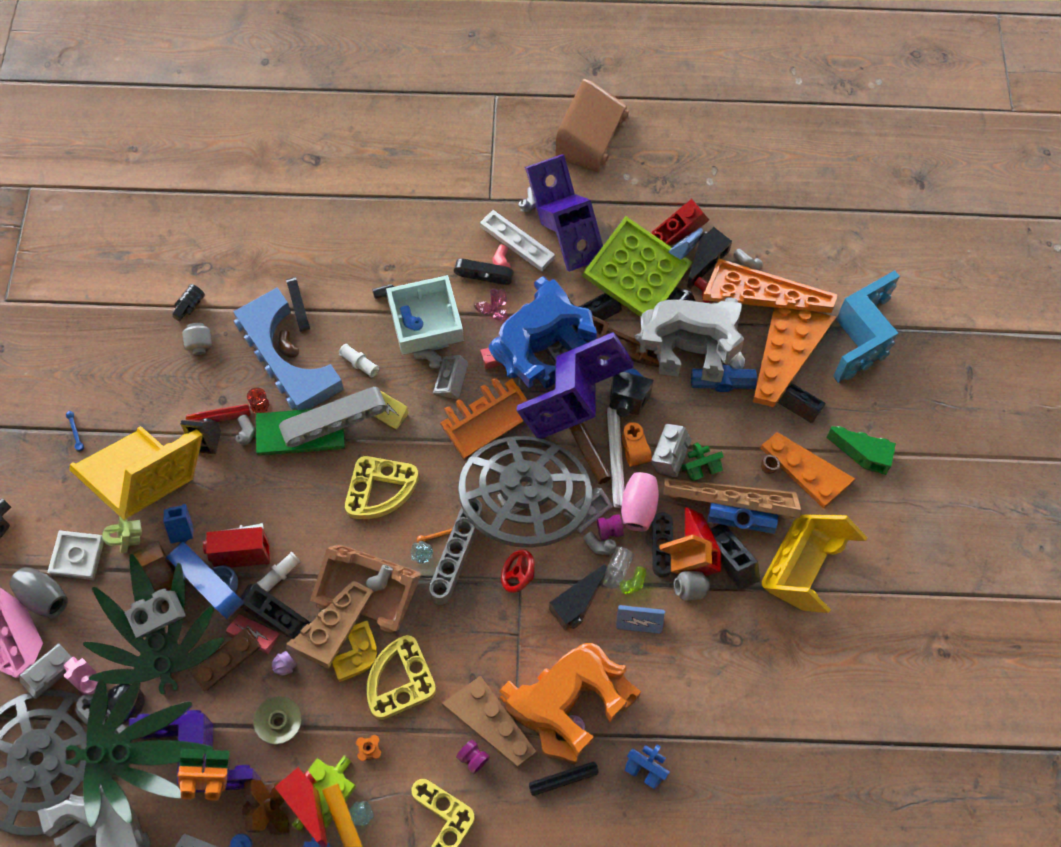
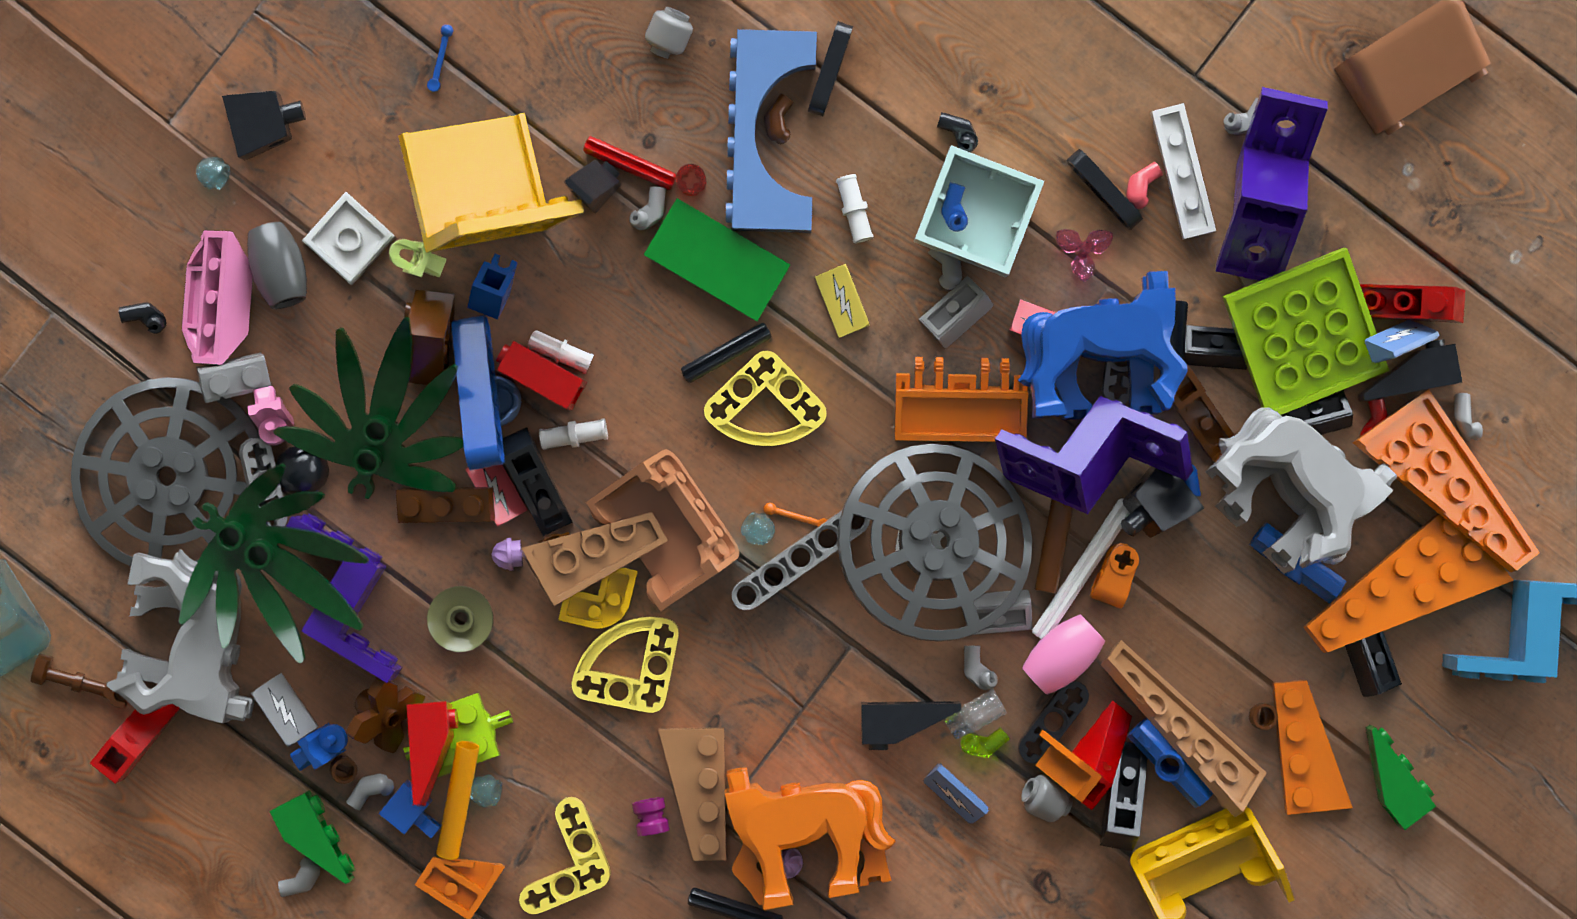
camera: 35 degrees right, 25 degrees up
(156, 617) = (394, 410): light grey brick -> none
(192, 776) = (345, 658): orange hips -> none
(332, 417) = (766, 277): light grey beam -> none
(338, 475) = (726, 352): none -> black axle
(365, 754) = (539, 712): orange plate -> none
(380, 581) = (683, 536): light grey arm -> none
(520, 571) = (858, 639): red piece -> none
(610, 527) = (1004, 657): magenta wheel -> none
(671, 450) = (1154, 614): light grey brick -> none
(712, 461) = (1181, 650): green hips -> none

